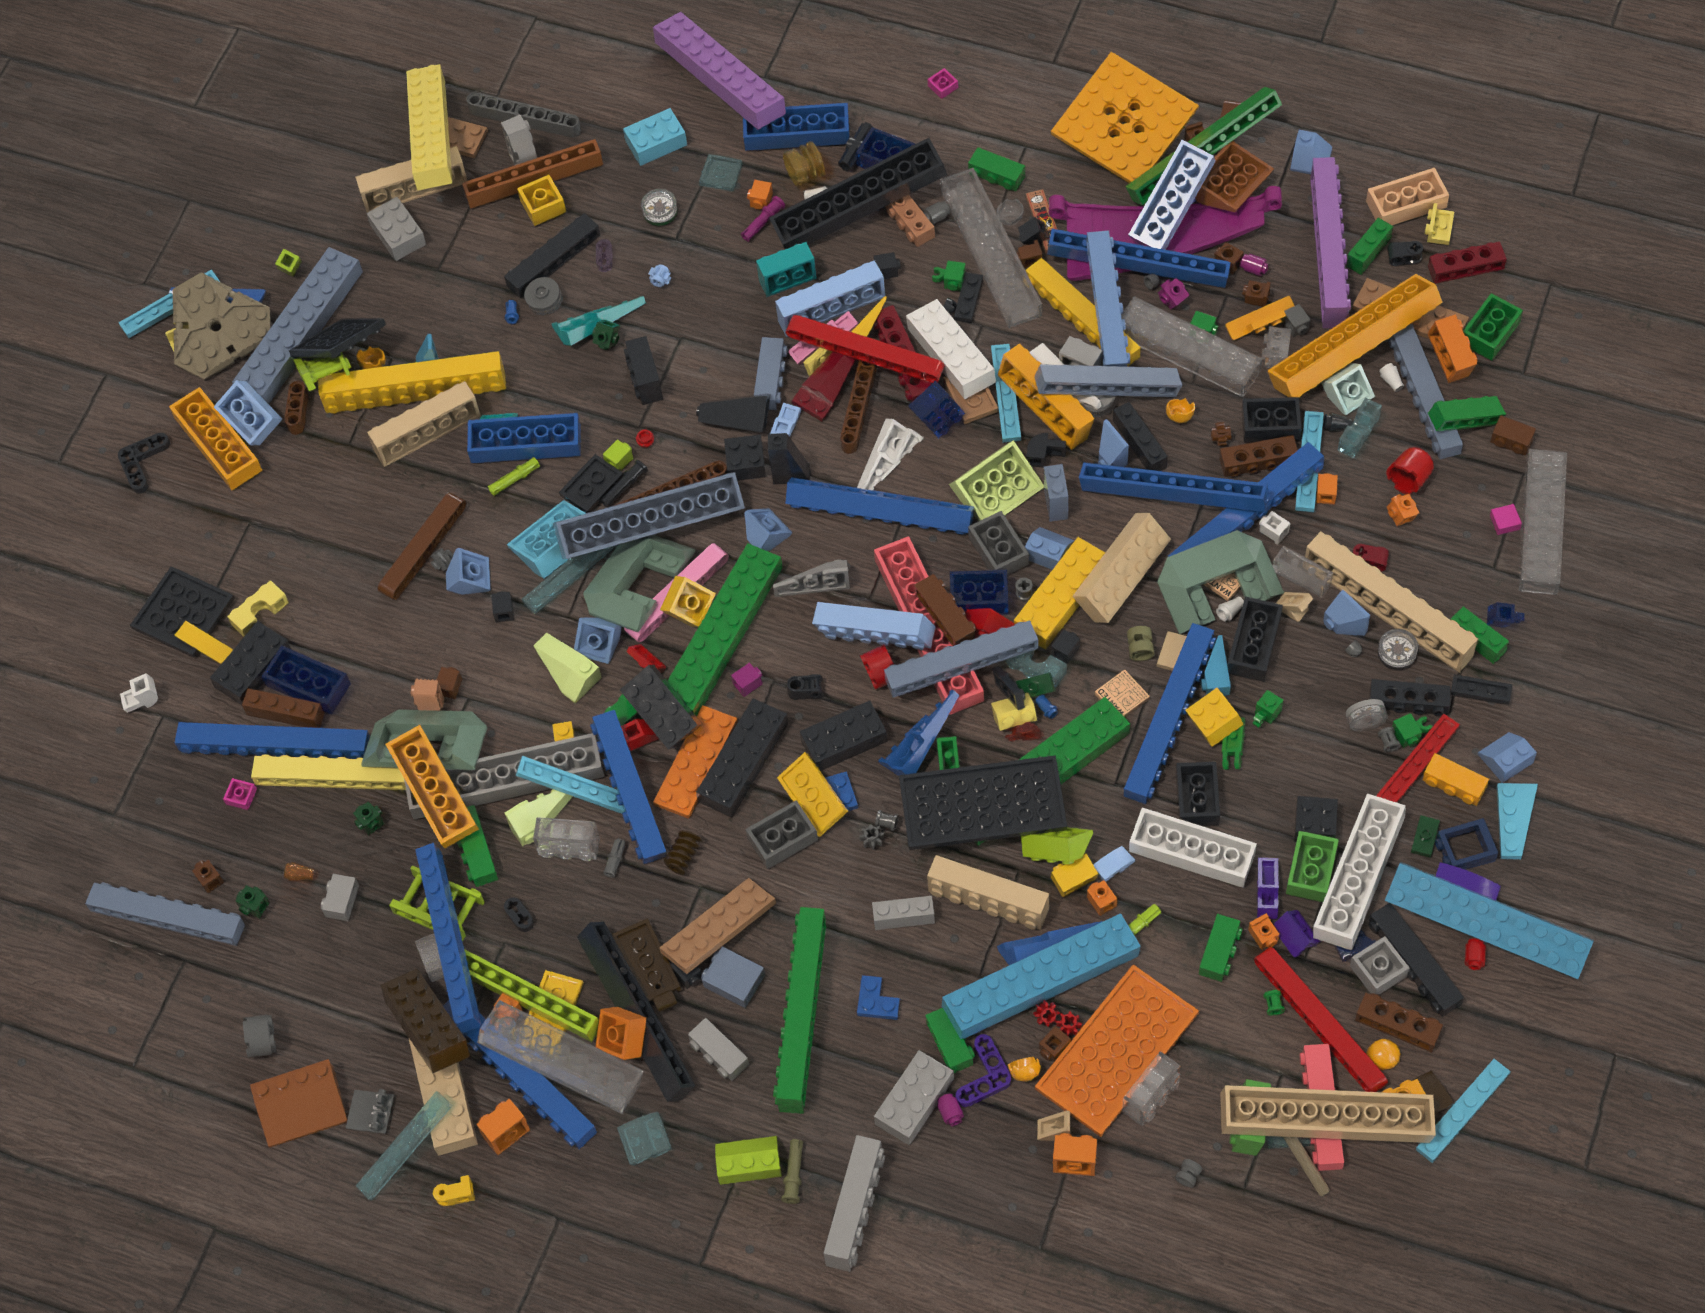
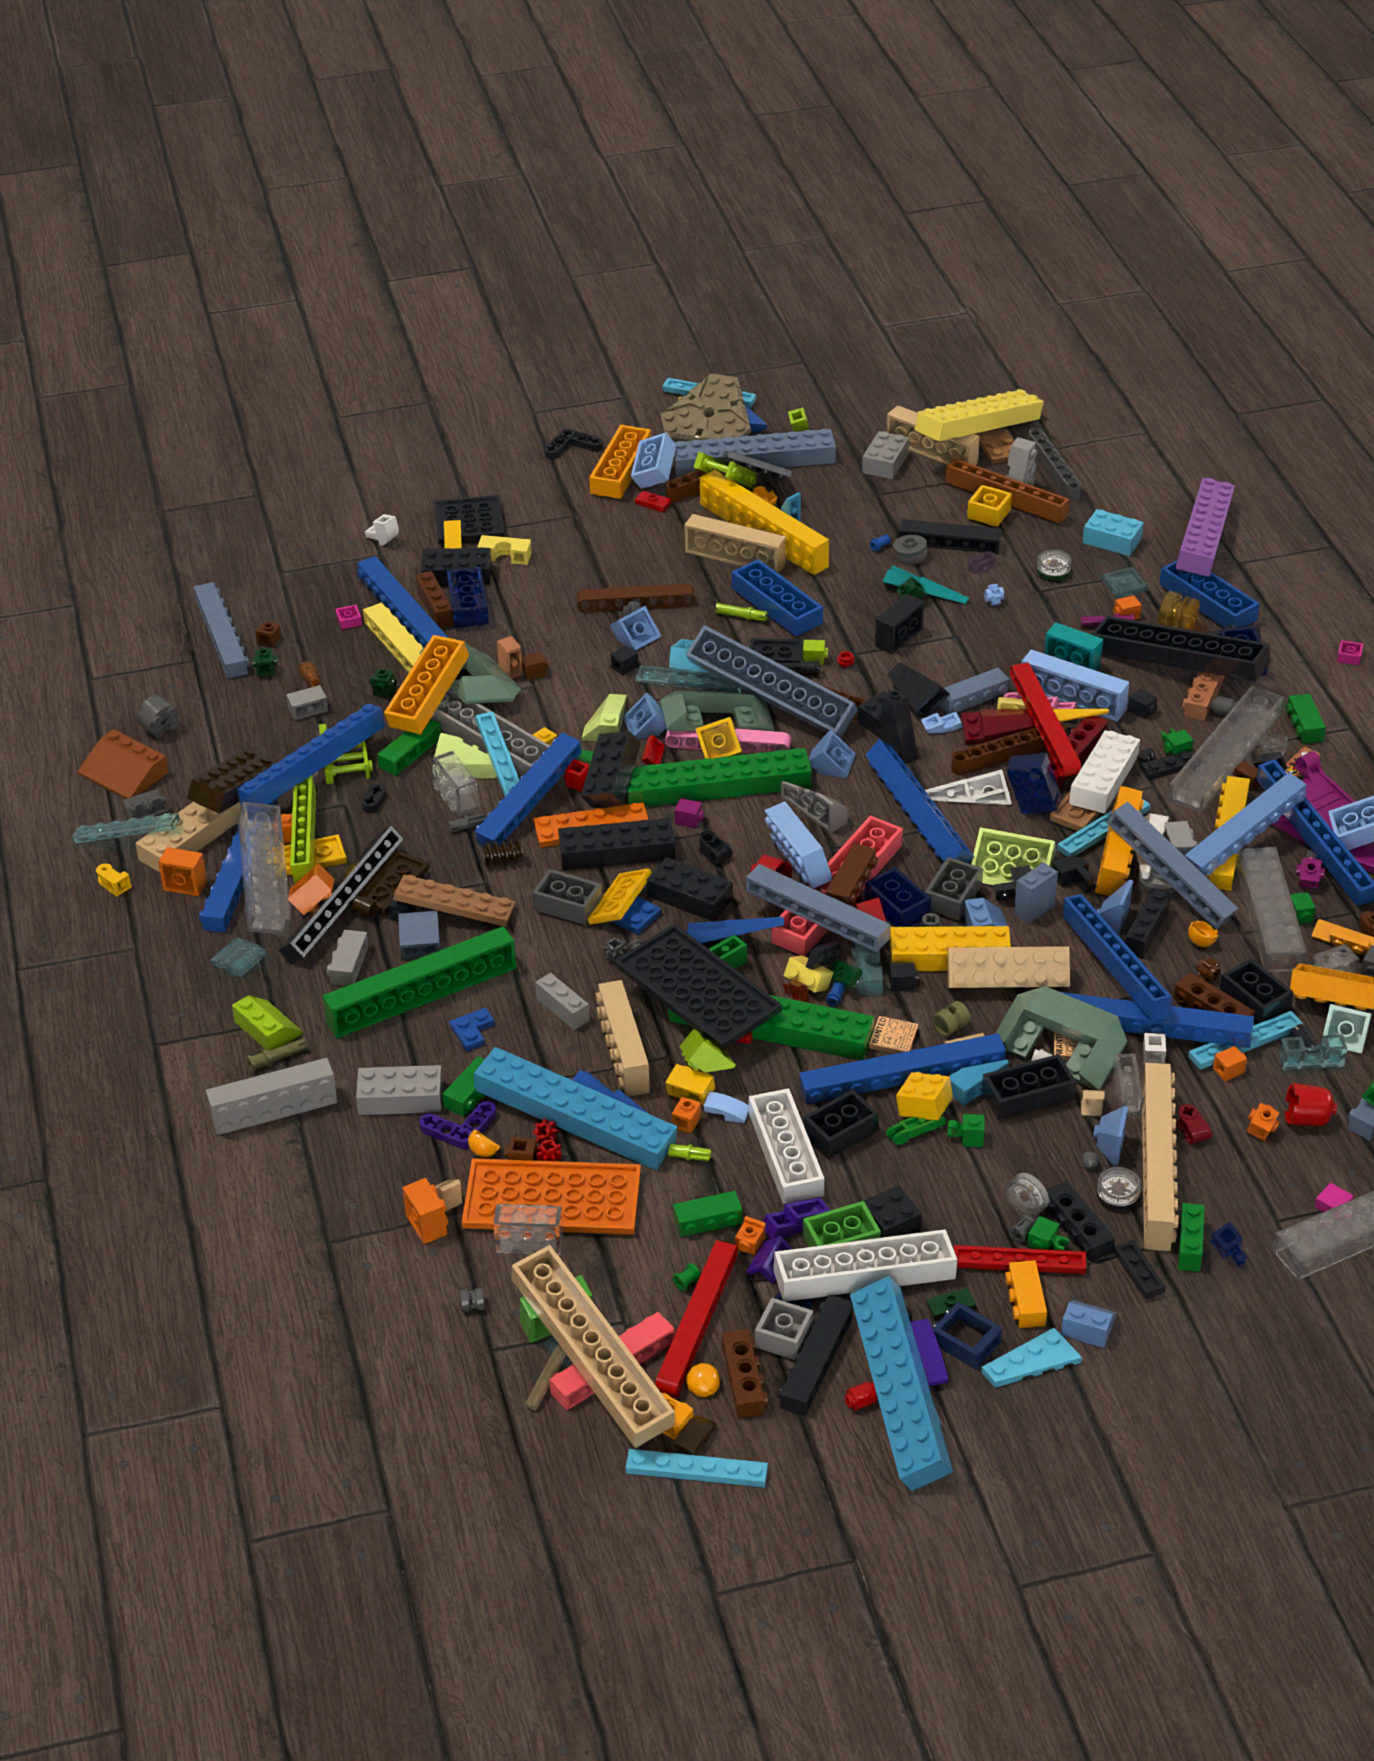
camera: 50 degrees right, 20 degrees down
(290, 447) = (653, 501): none -> red plate
(950, 1109) = (407, 1118): magenta brick -> none
(1032, 495) = (1008, 890): none -> black brick

